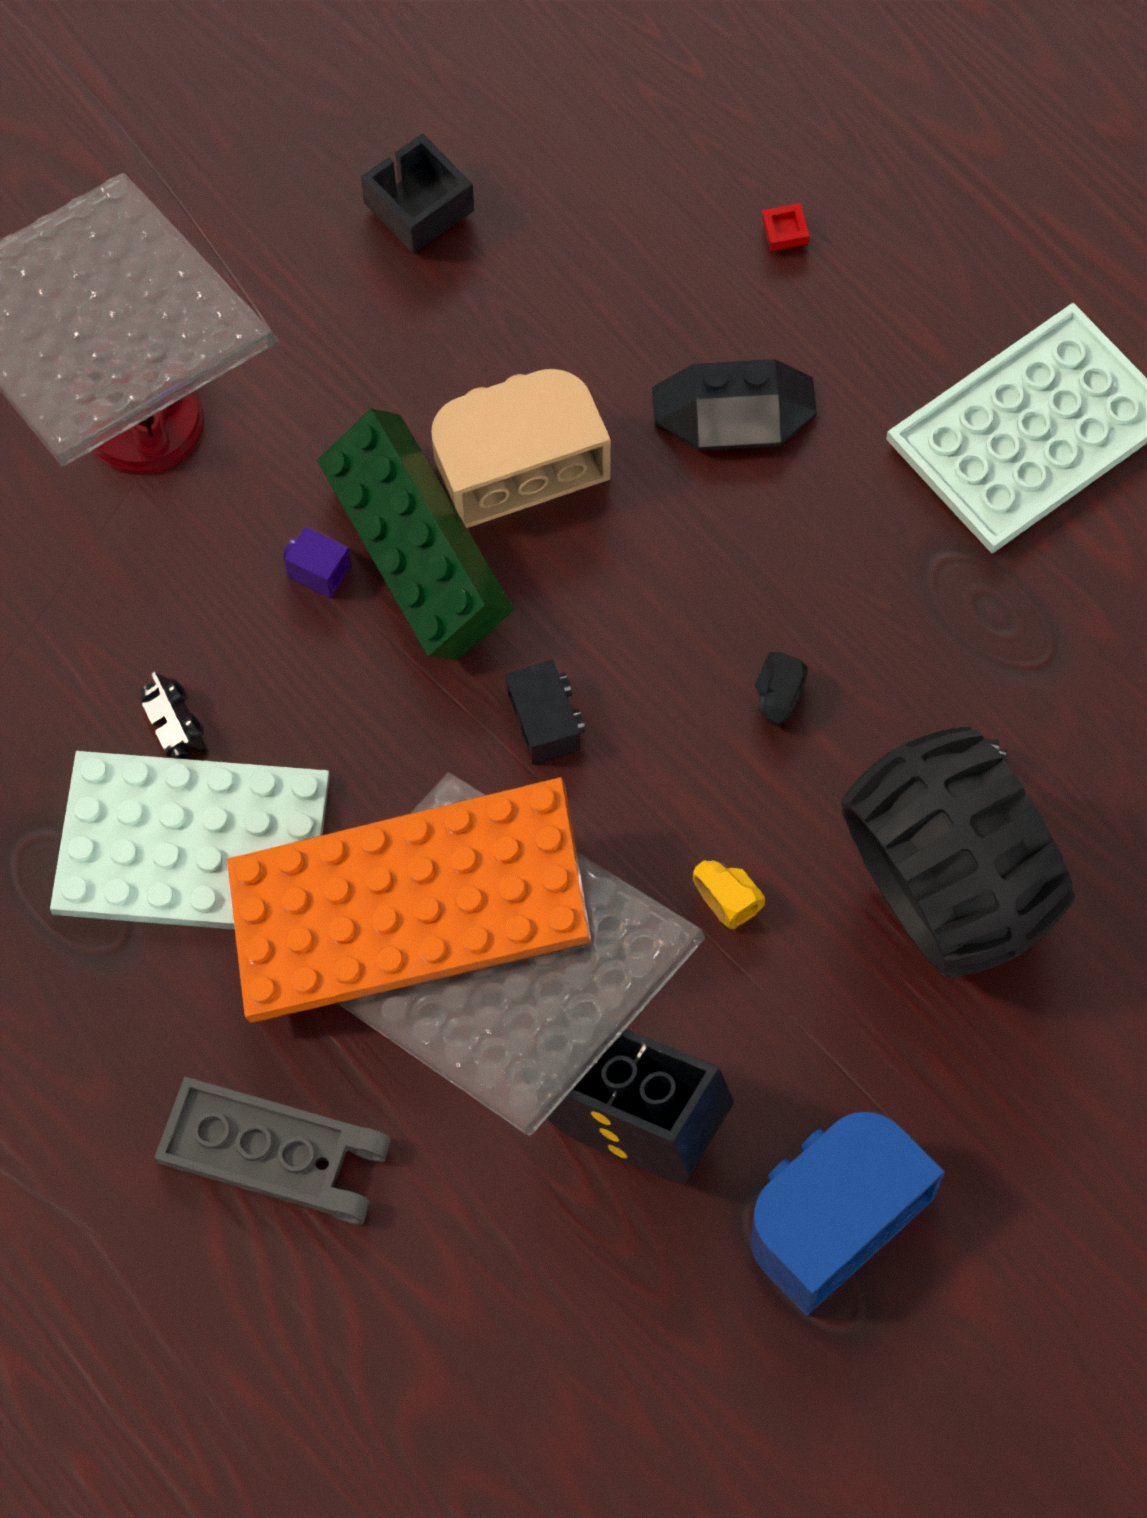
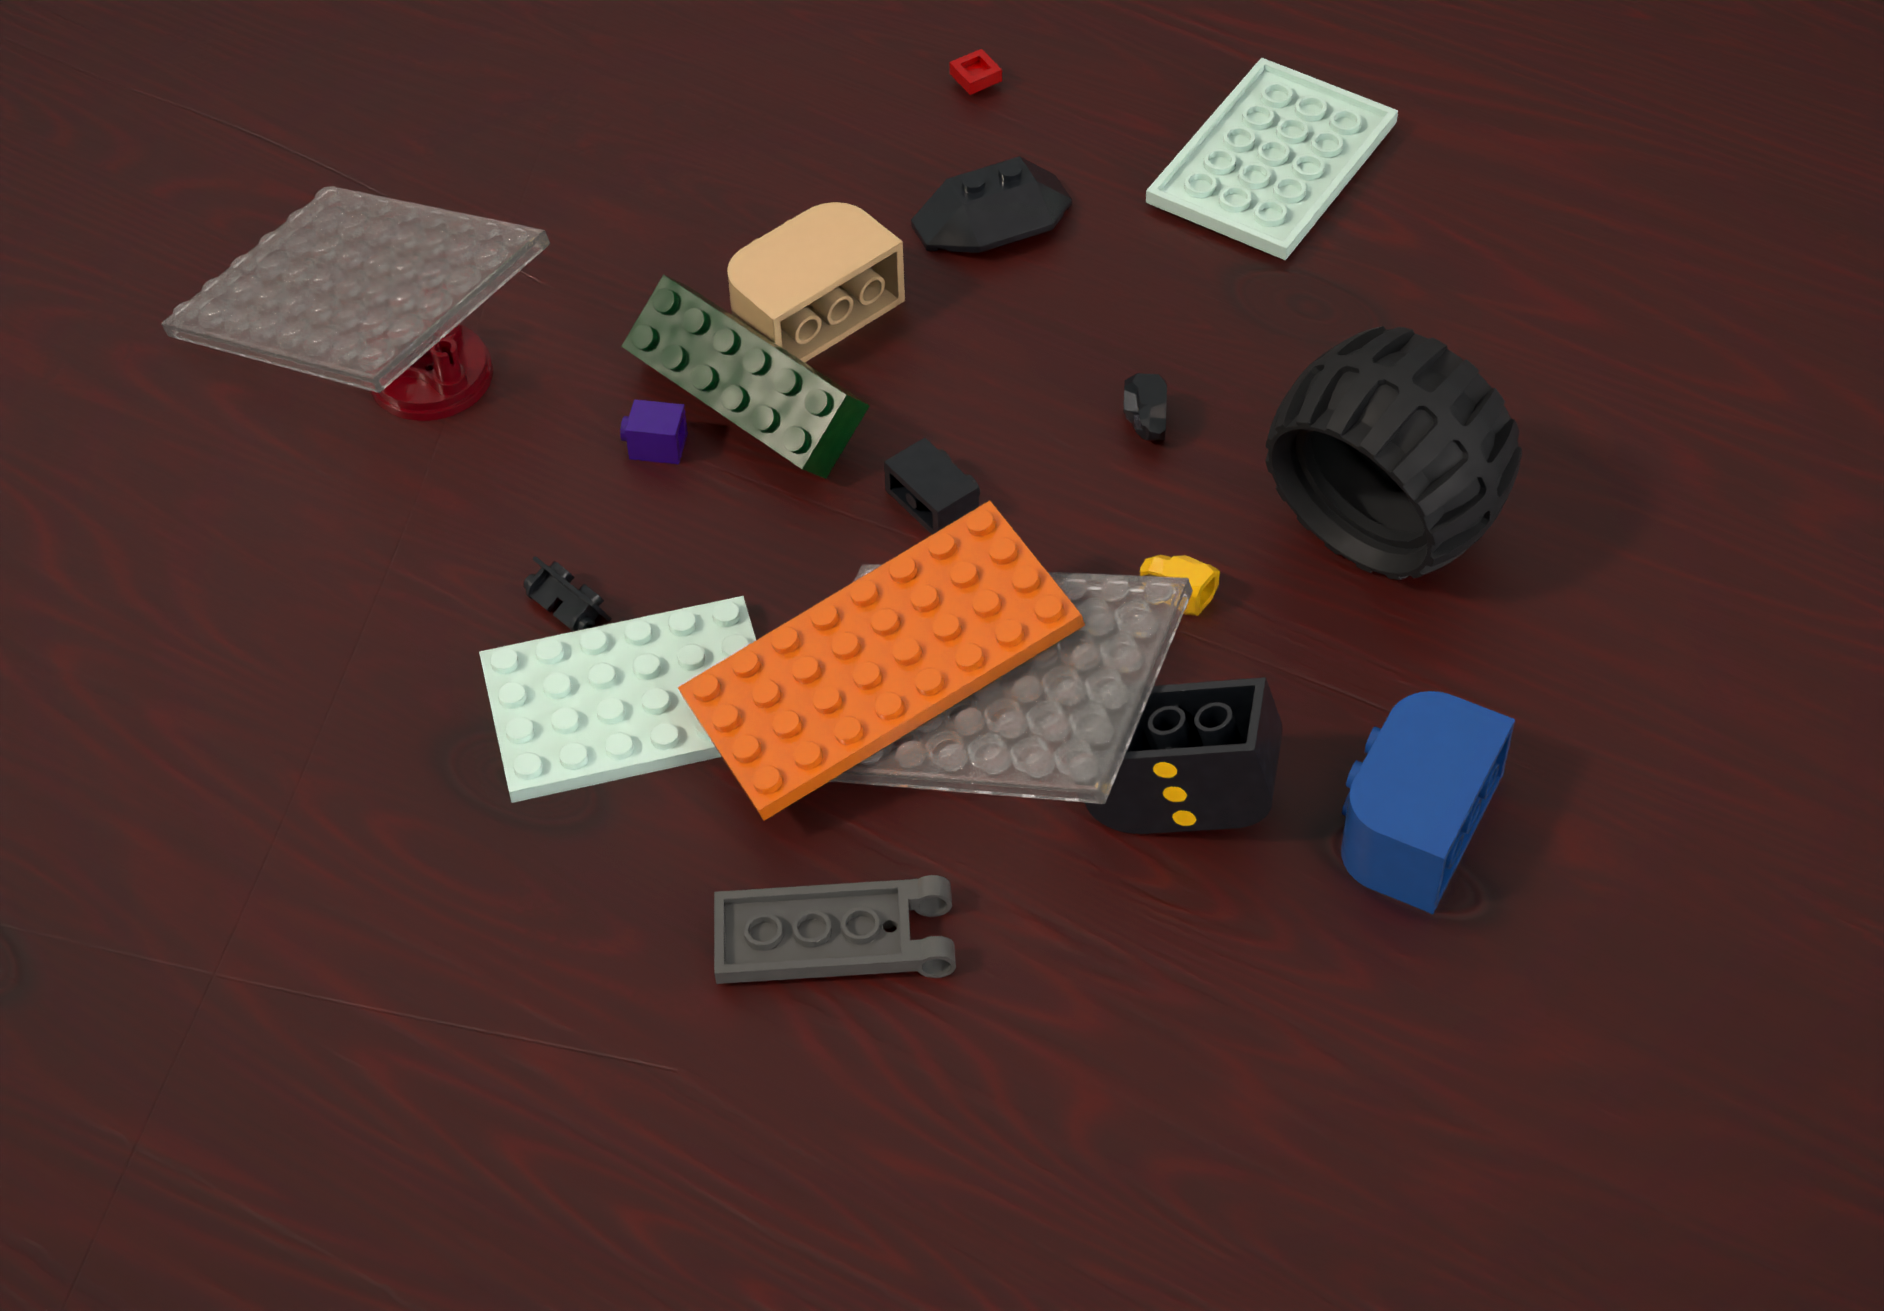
camera: 20 degrees left, 15 degrees down
(426, 199) = (625, 125): black piece -> none

